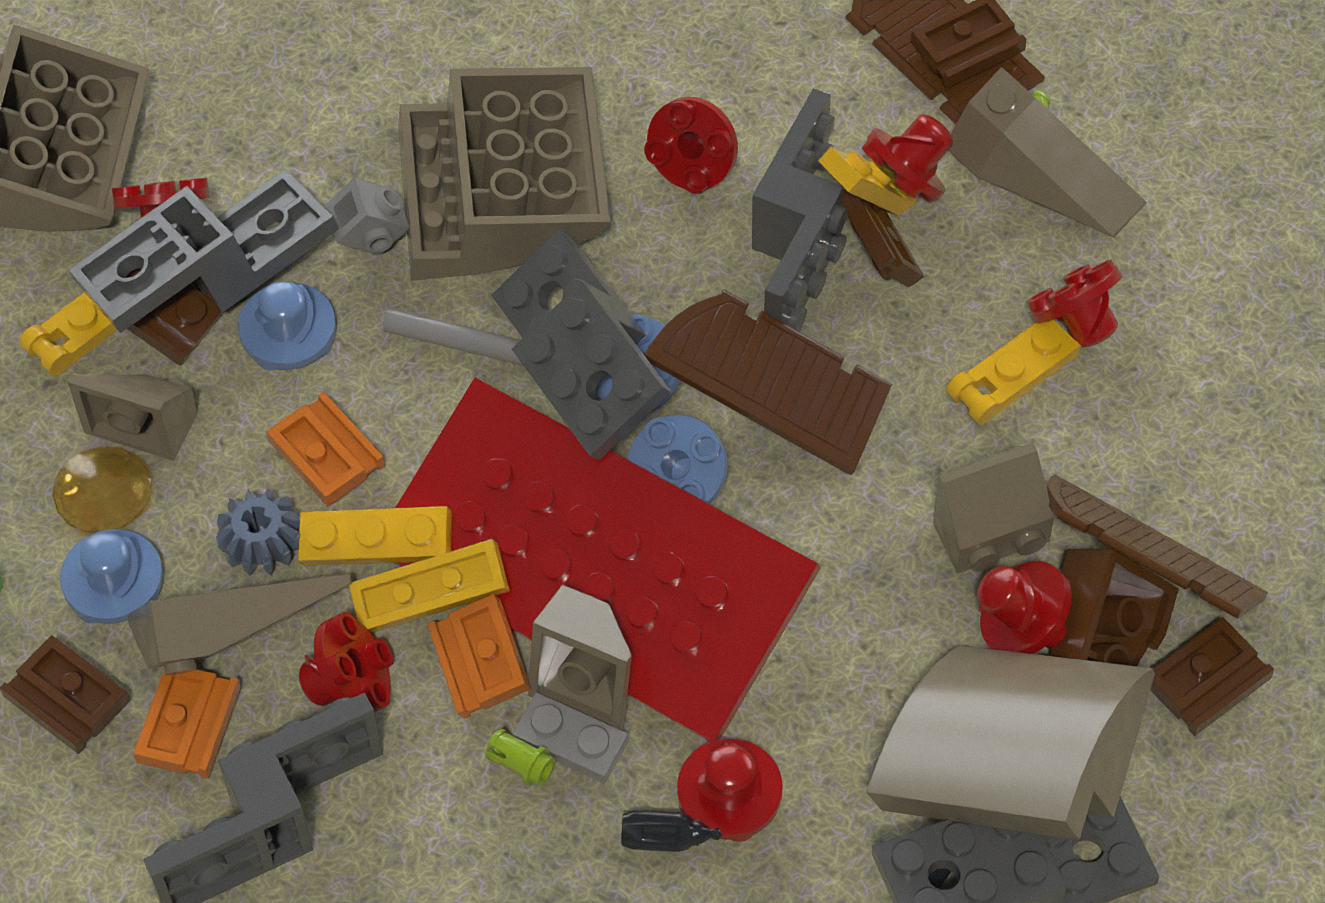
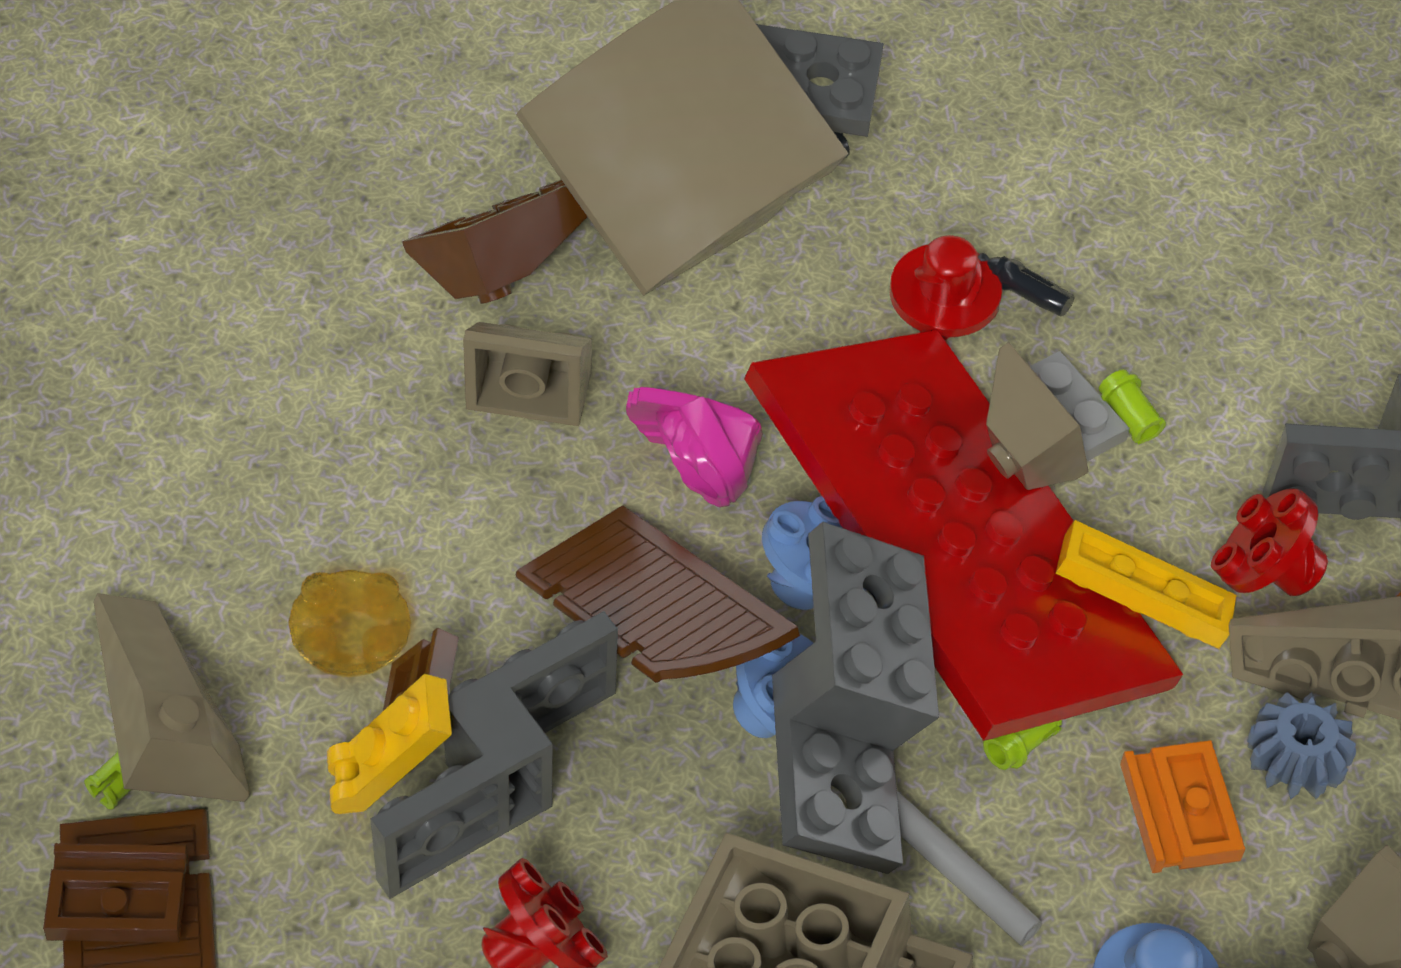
camera: 155 degrees left, 5 degrees down
(374, 535) = (1177, 668): yellow plate -> none
(479, 656) = (1126, 499): orange plate -> none
(828, 514) = (706, 439): none -> dark pink hair
(913, 155) = (315, 759): red plate -> none
(972, 282) = (349, 622): none -> clear yellow dish
(1013, 370) = (382, 516): yellow plate -> none
(1024, 607) = (565, 274): red plate -> none
(1081, 303) = (266, 520): red plate -> none
(1152, 549) = (408, 261): reddish brown piece -> none
(1209, 676) = (440, 162): reddish brown plate -> none

